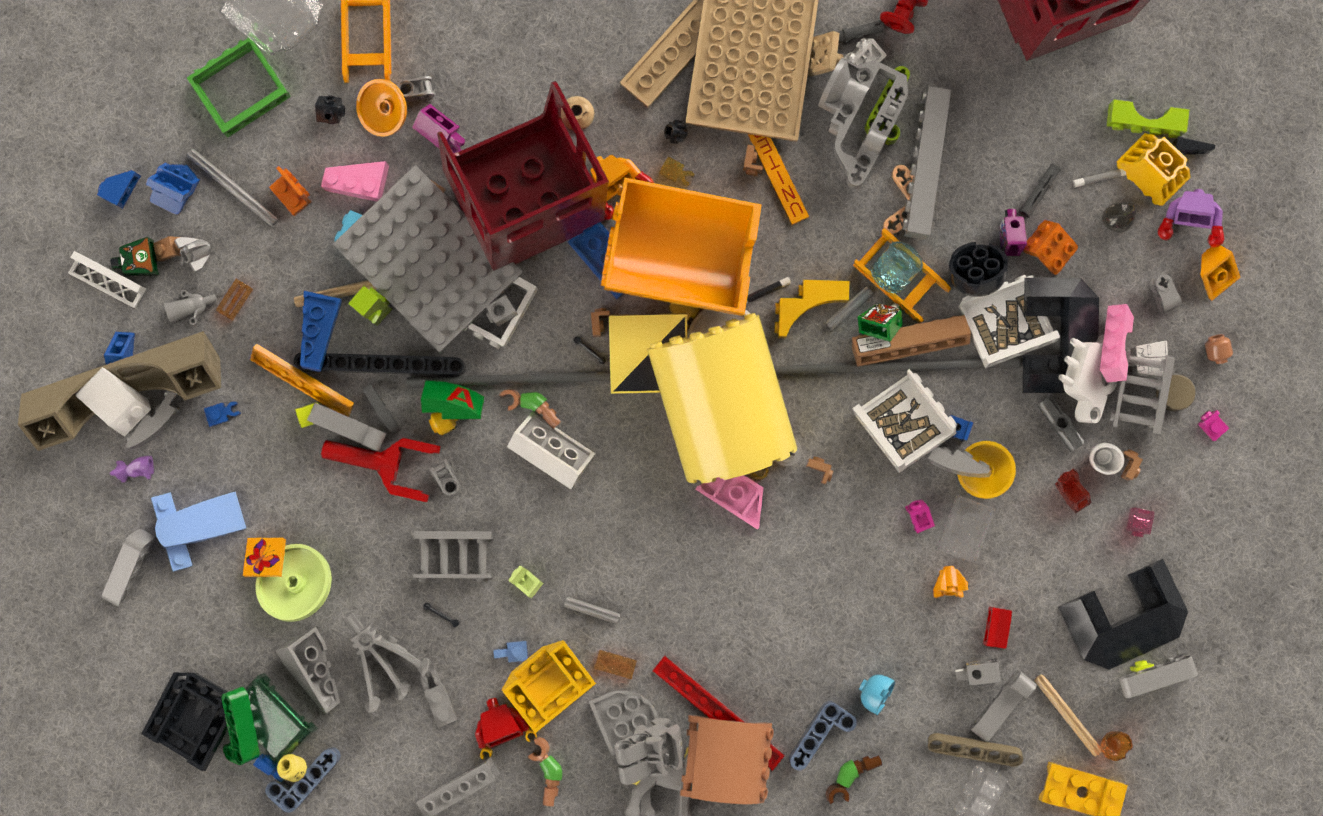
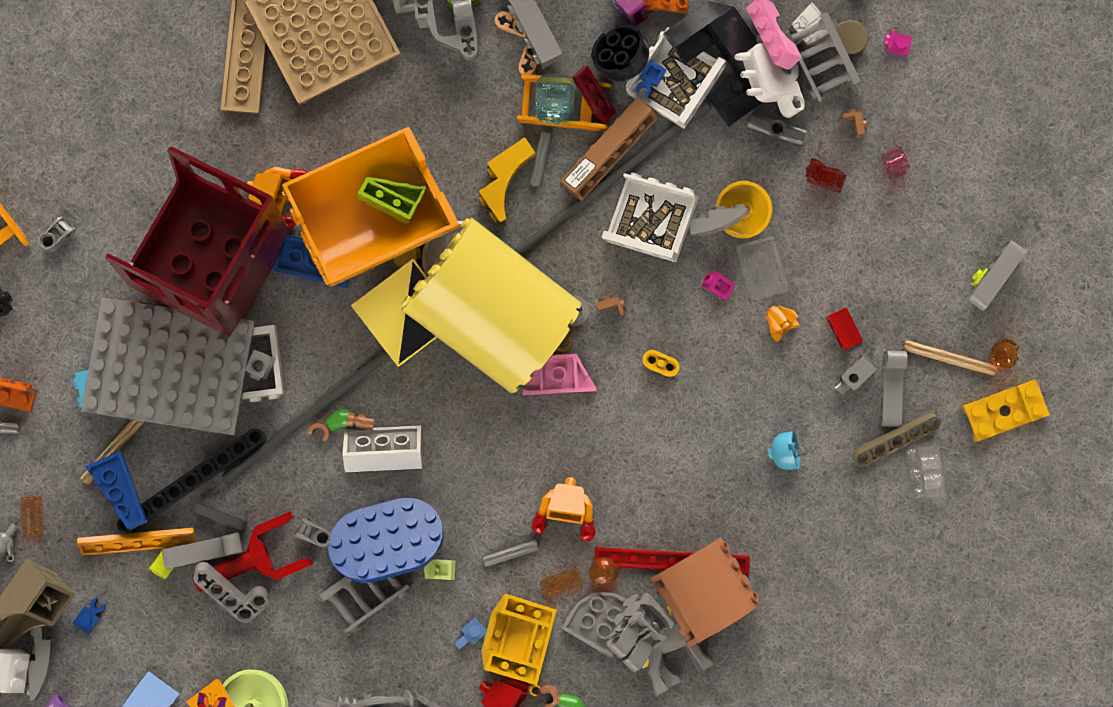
camera: 40 degrees left, 0 degrees up
(335, 450) = (229, 590): none -> light grey beam
(357, 180) = (62, 344): bright pink wedge -> none
(371, 305) = (150, 437): lime arch -> none
(373, 108) = (30, 274): light orange dish -> none
(431, 121) = (91, 254): magenta hinge -> none
(441, 425) = (277, 489): yellow head -> none
(451, 400) = (272, 467): green slope -> none
(454, 623) = (406, 645): black hinge -> none
(499, 526) = (385, 540): none -> plate
(577, 340) = (339, 344): black hinge -> none
(585, 117) = (213, 157): tan piece -> none
(597, 326) = (346, 320): medium nougat bracket -> none
(656, 681) = (604, 572): none -> clear orange hair
(666, 604) = (566, 504): none -> light orange torso
(674, 170) = (317, 149): clear yellow plate -> none
(675, 131) = (296, 117): black gear -> none
(705, 252) = (391, 197): none -> lime wedge
(750, 158) = (373, 94): medium nougat bracket -> none
(768, 289) = (464, 191): black bar -> none
(779, 178) = (408, 94): light orange tile -> none
(818, 737) = (766, 520): sand blue beam -> none
(826, 545) = (661, 361): none -> yellow plate
(848, 773) = (810, 532): piece -> none
(881, 321) = (573, 151): green torso -> none
(931, 287) = (593, 95): none -> dark red plate
(965, 428) = (703, 188): blue brick -> none
(989, 306) = (652, 76): none -> blue plate
(1106, 458) = (832, 131): white hat -> none
(1136, 635) = (959, 252): black slope -> none

